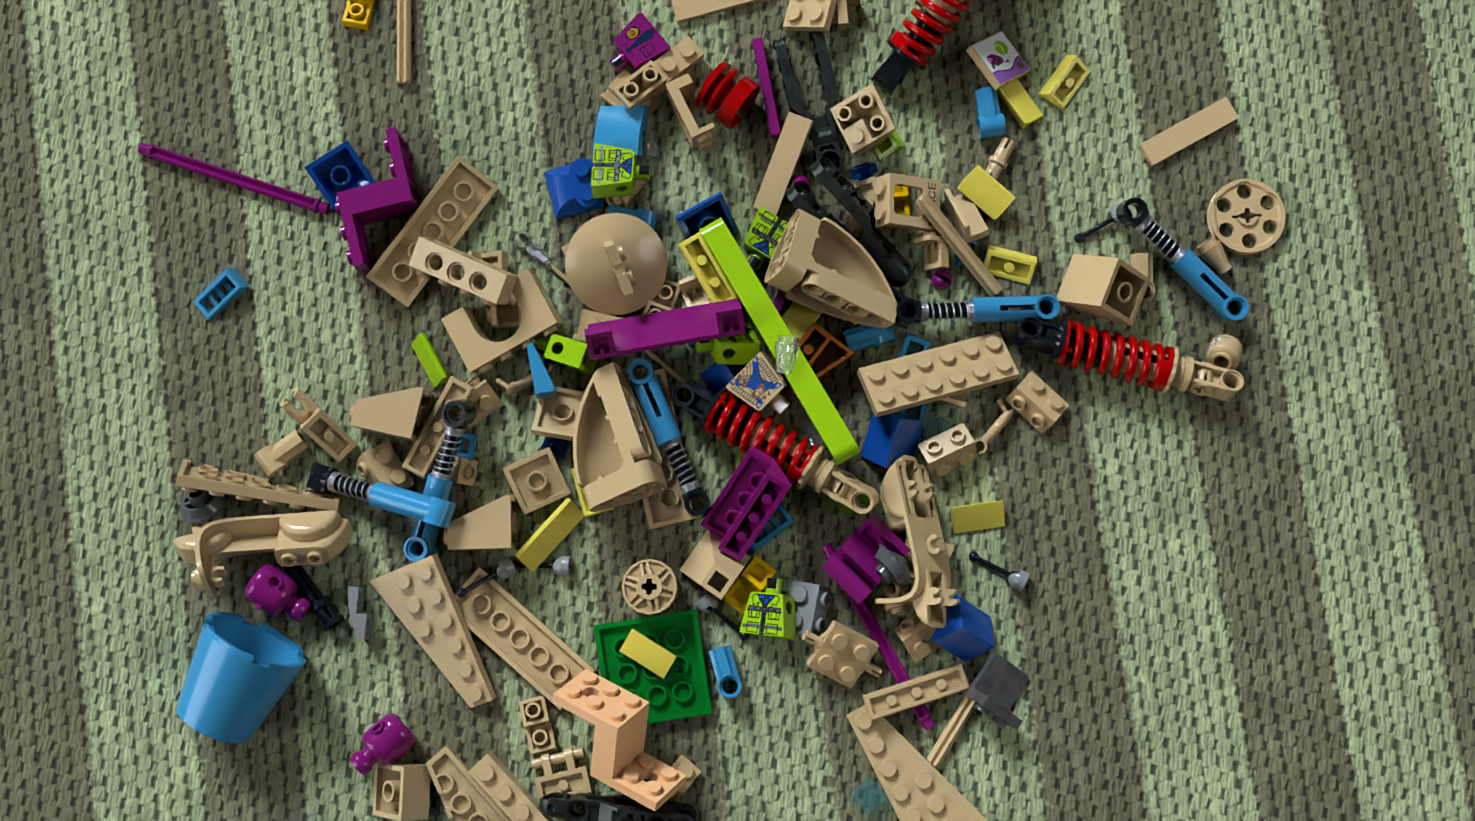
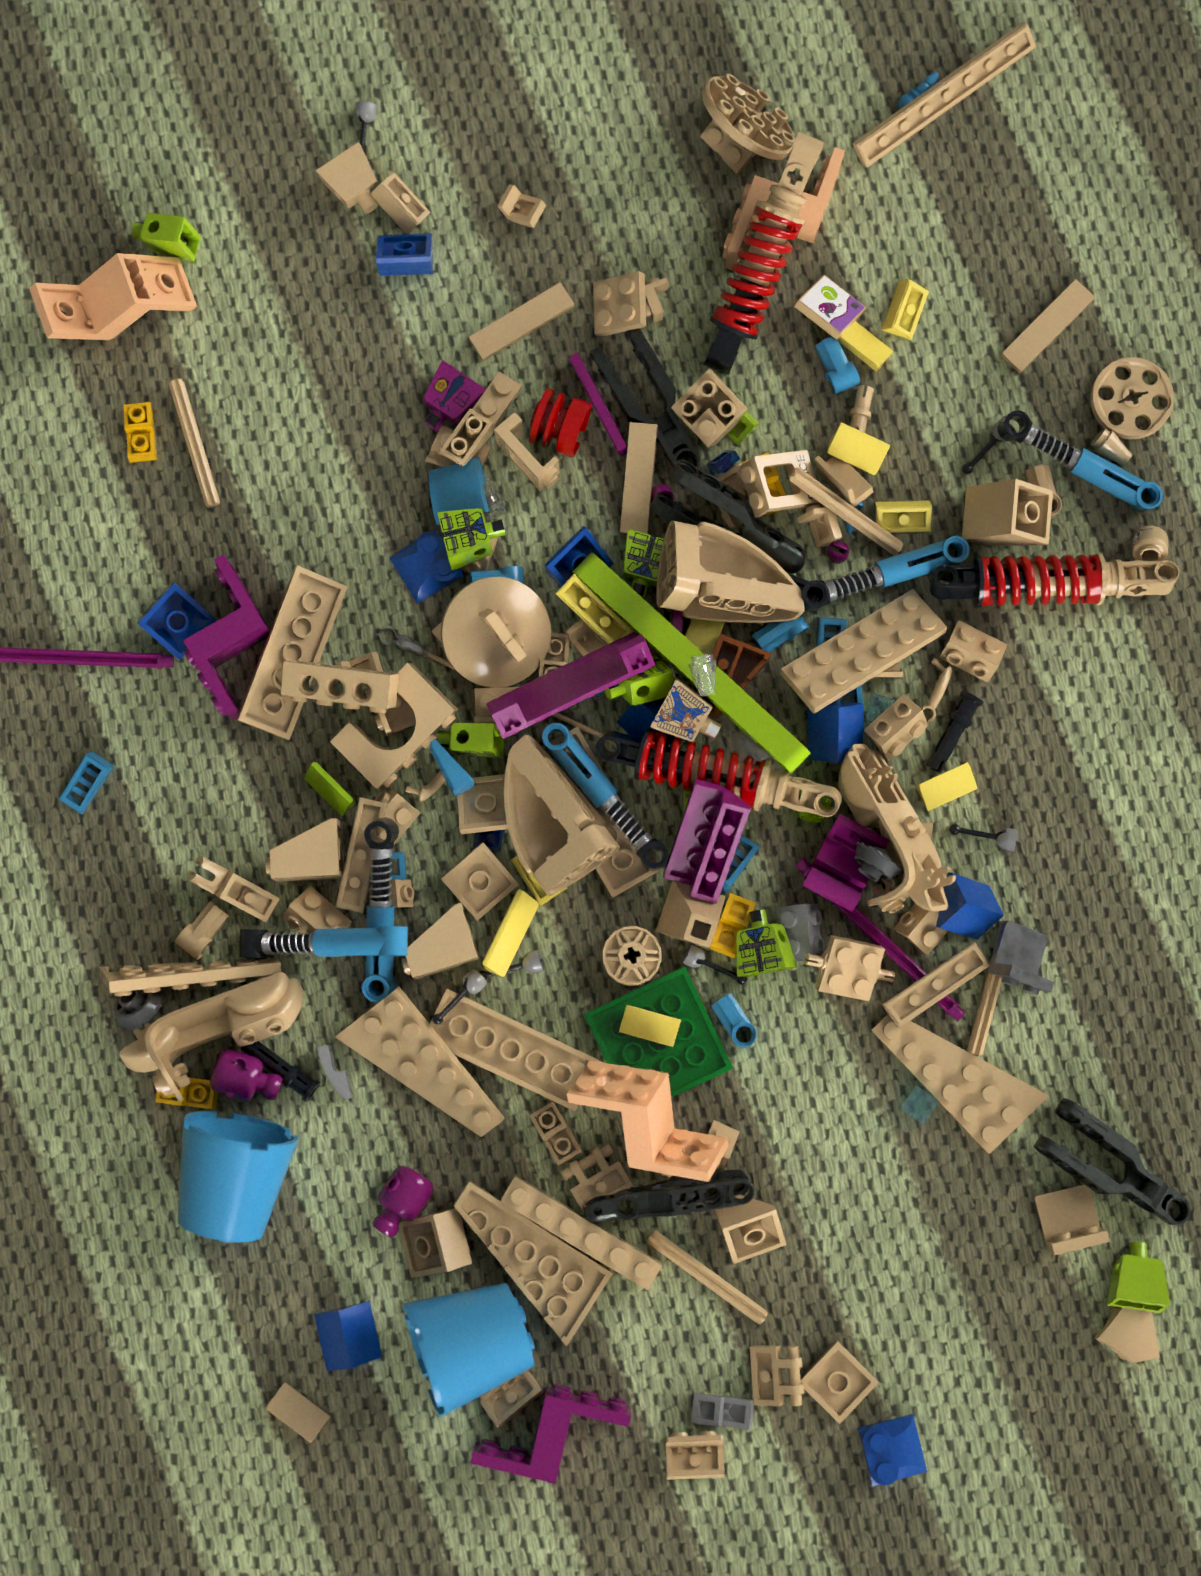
camera: 20 degrees left, 0 degrees up
(230, 595) = (195, 1094): none -> yellow slope
(1006, 460) = (959, 720): none -> black pin

